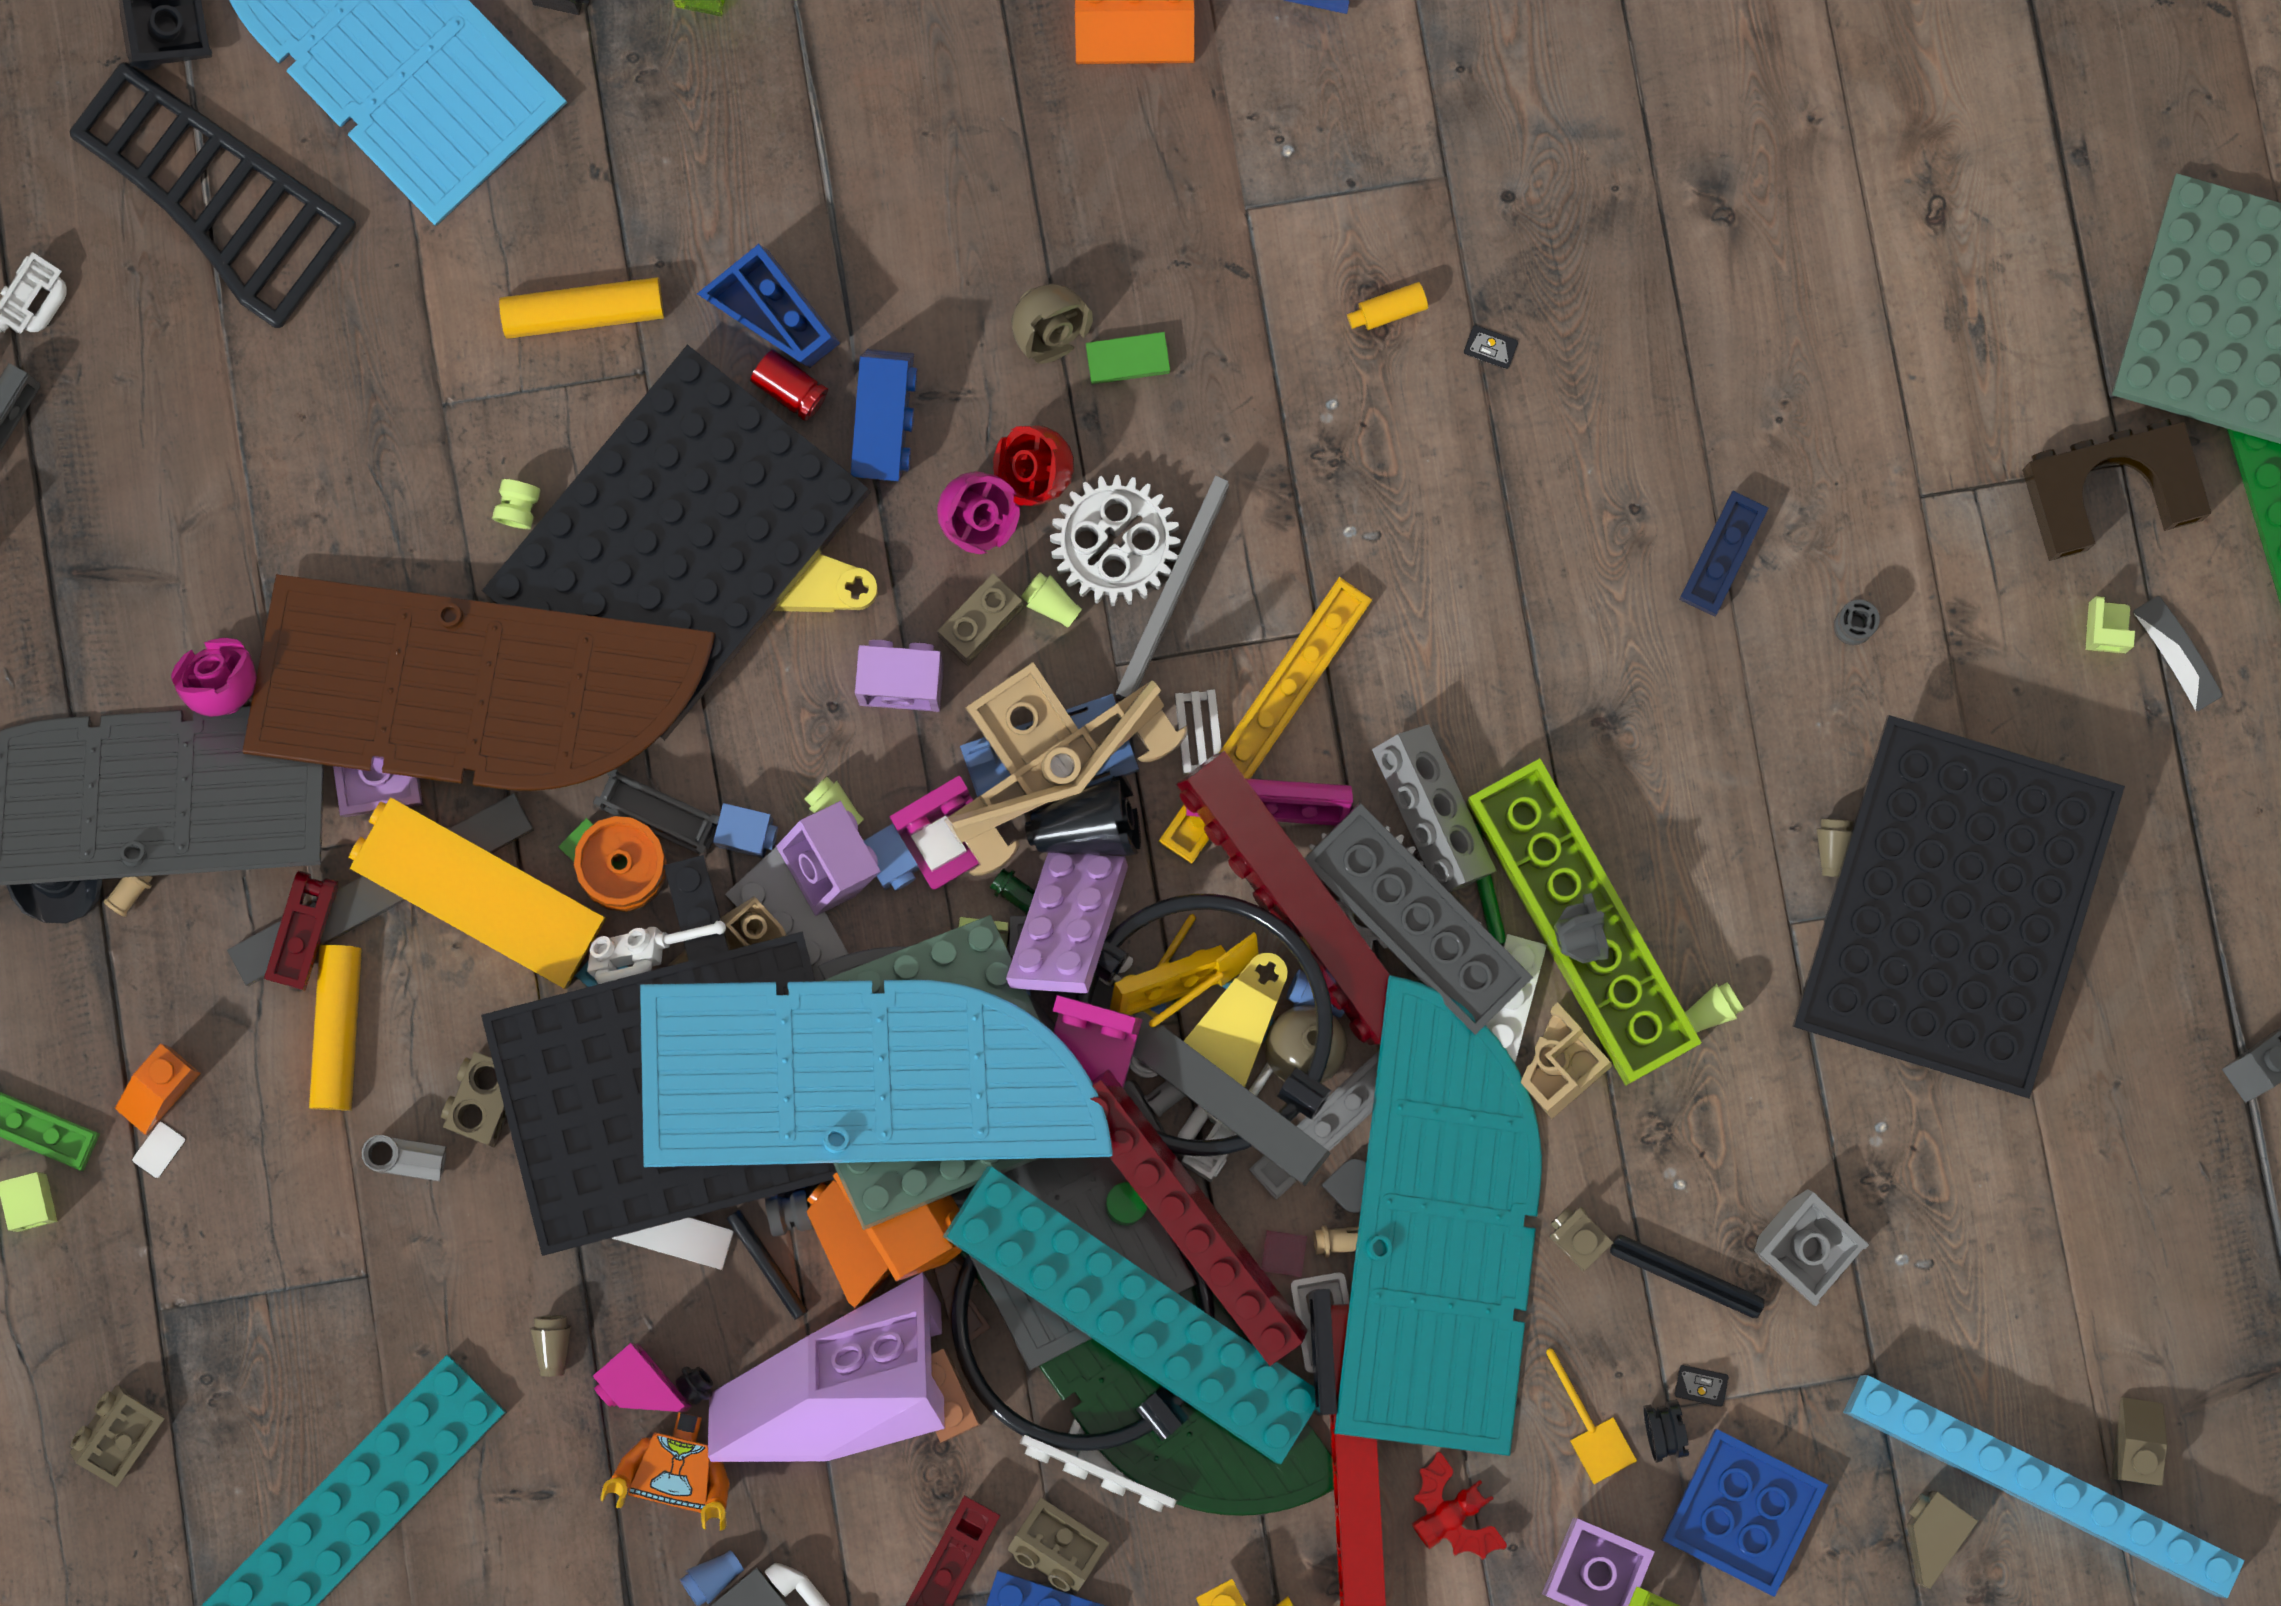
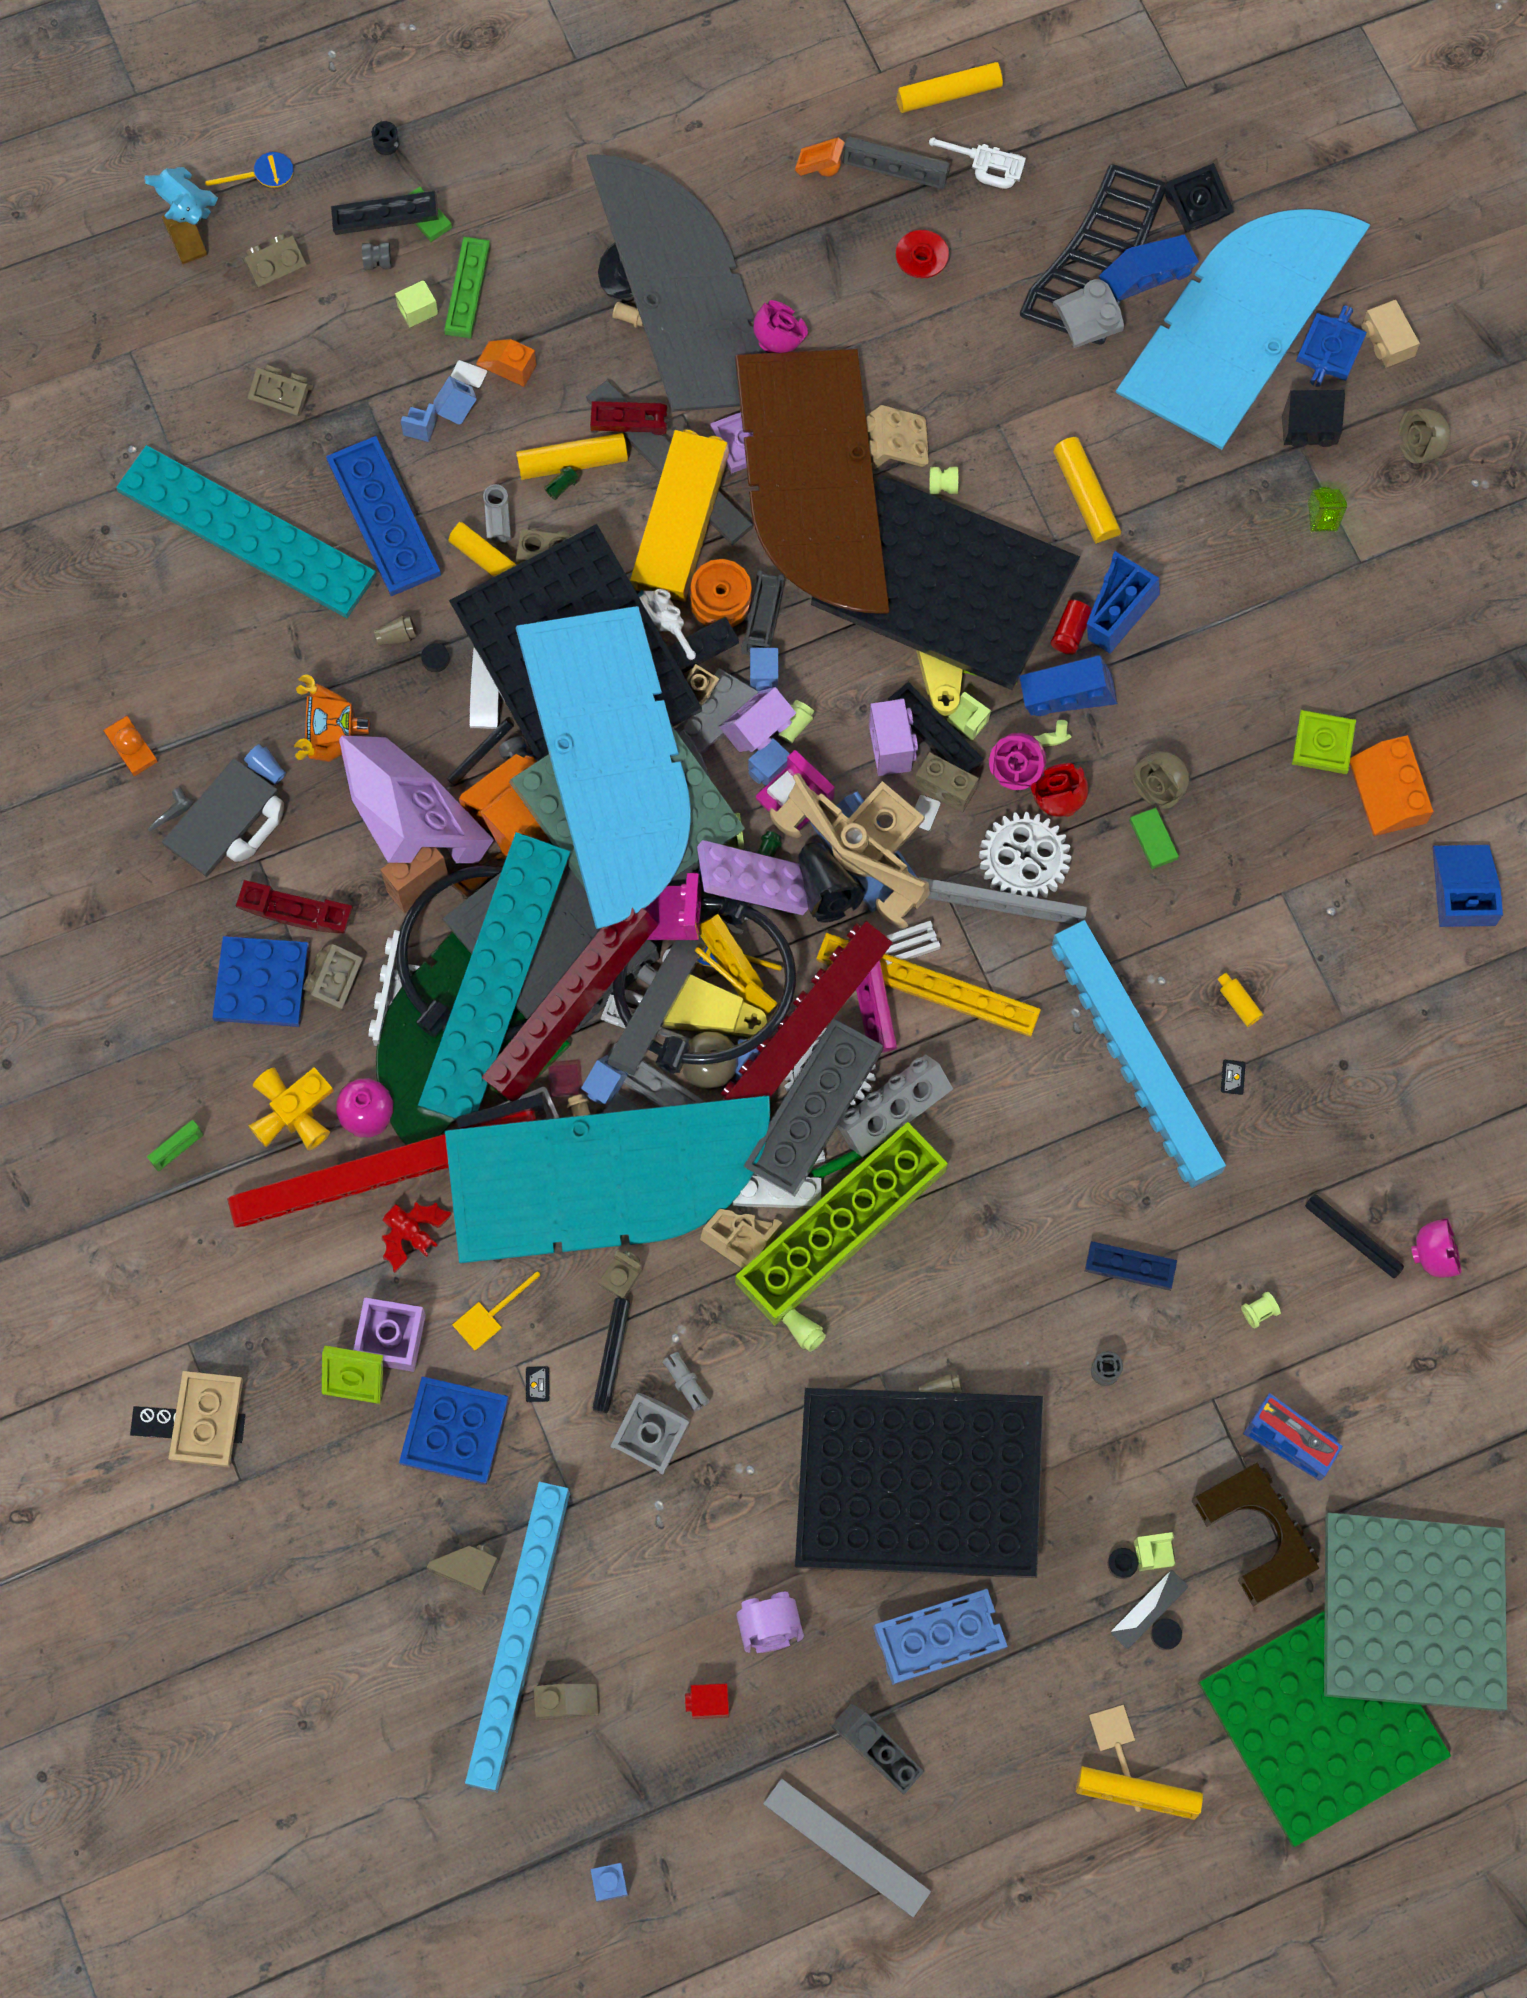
camera: 75 degrees right, 10 degrees down
(132, 429) = (922, 244): none -> red dish
(201, 1179) = (454, 400): none -> medium blue panel
(223, 1239) = (419, 423): none -> medium blue panel
(262, 124) = (1149, 266): none -> blue wedge
(308, 228) = (1090, 313): none -> light grey slope
(360, 1324) = (383, 516): none -> blue plate
(375, 1052) = (561, 482): none -> dark green pin
(431, 552) = (896, 436): none -> tan bracket
(465, 1189) = (479, 550): none -> yellow brick
(603, 1296) = (435, 657): none -> black tile
(638, 1383) = (383, 685): dark pink slope -> none
(694, 1384) = (389, 724): black plate -> none
(888, 562) = (969, 717): none -> yellowish green panel
(896, 613) = (937, 731): none -> black plate
(947, 458) = (1057, 737): none -> yellowish green bar
(1007, 657) = (928, 808): none -> white sticker
(1045, 89) = (1323, 742): none -> lime plate
(1049, 599) = (972, 825): yellowish green cone -> none
(1124, 1205) = (567, 956): green tile -> none
(1259, 1540) = (364, 1107): none -> dark pink cylinder
(1307, 1204) = (603, 1081): none -> medium blue brick
(1434, 464) = (1138, 1054): none -> medium azure brick
(1582, 932) = (831, 1214): dark grey piece -> none
(1666, 1430) = (498, 1360): black wheel -> none
(1747, 1184) = (686, 1381): none -> light grey pin
(1748, 250) = (1354, 1236): none -> black axle
(1797, 149) = (1437, 1249): none -> dark pink cylinder
(1822, 400) = (1260, 1309): none -> yellowish green bush
(2002, 406) = (1293, 1437): none -> wedge
(2102, 1149) = (769, 1623): none -> lavender brick
(2112, 671) = (1122, 1563): none -> black tile
(2162, 932) = (939, 1637): none -> medium blue piece
(2180, 1254) = (707, 1701): none -> red brick
(2216, 640) = (1166, 1634): none -> black tile

